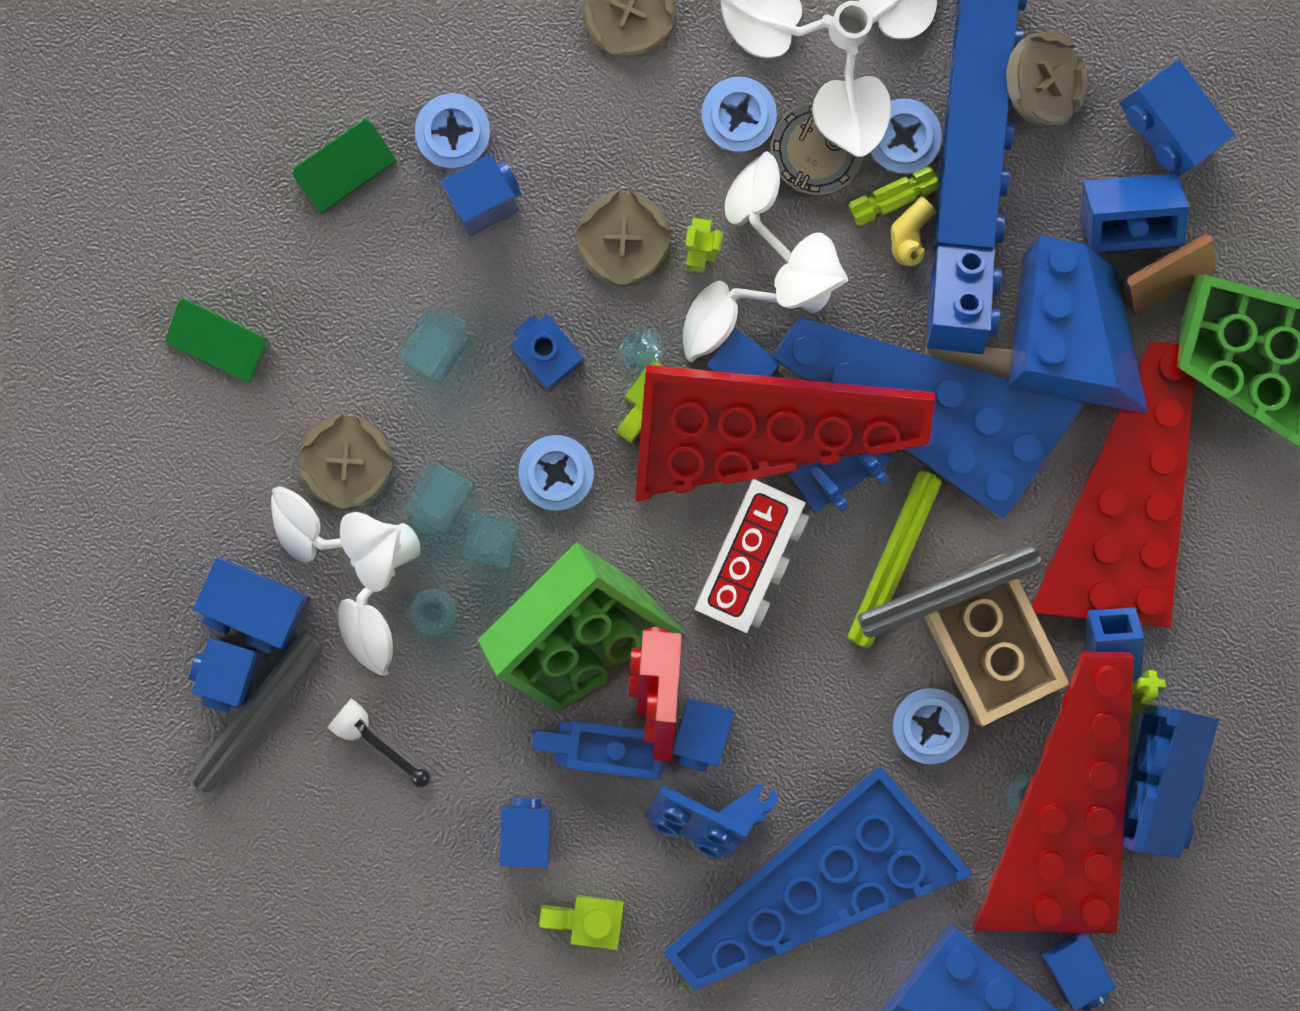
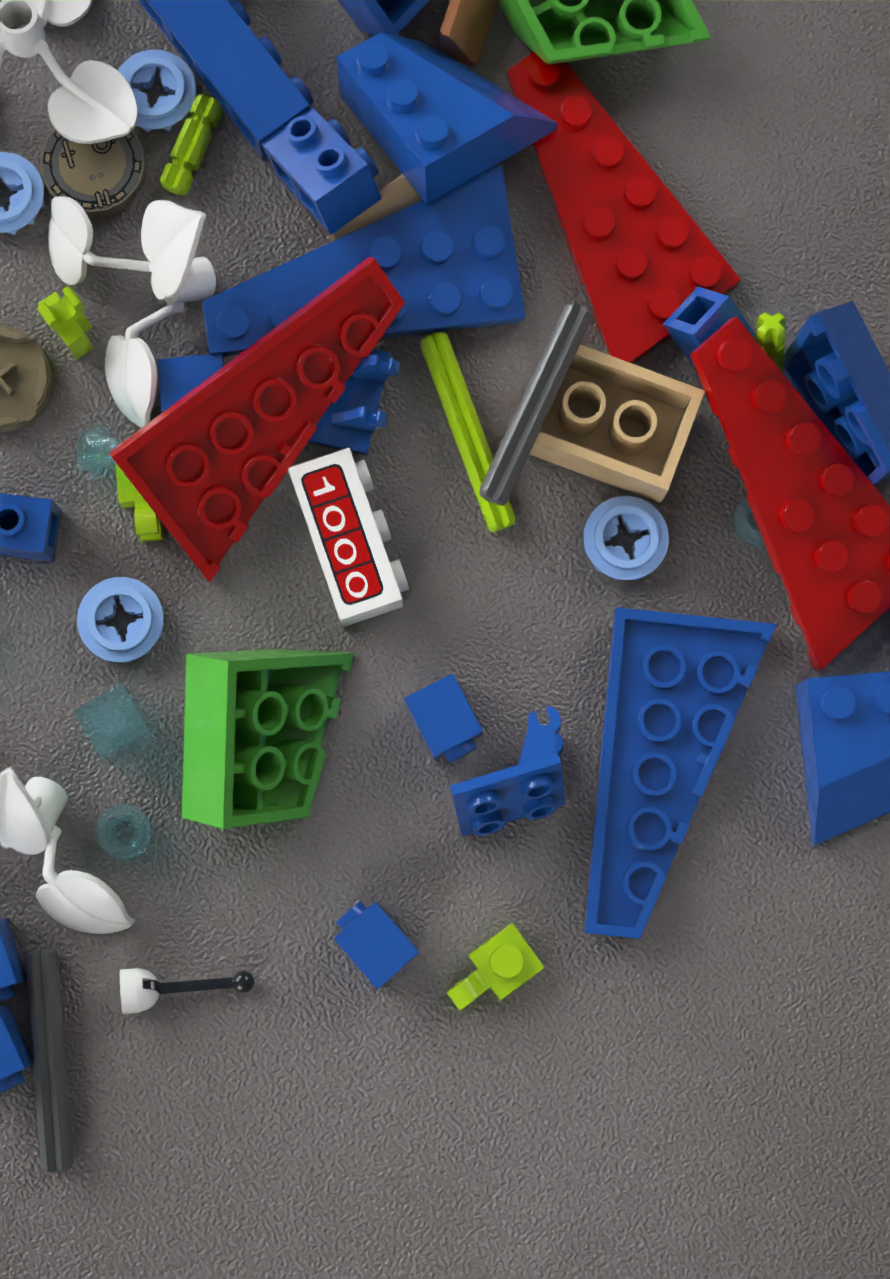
camera: 45 degrees left, 5 degrees down
(438, 499) = (39, 731): clear light blue brick -> none
(600, 749) = (375, 809): blue hinge -> none
(655, 684) = (369, 713): plate -> none
(906, 233) = (229, 164): light yellow arm -> none

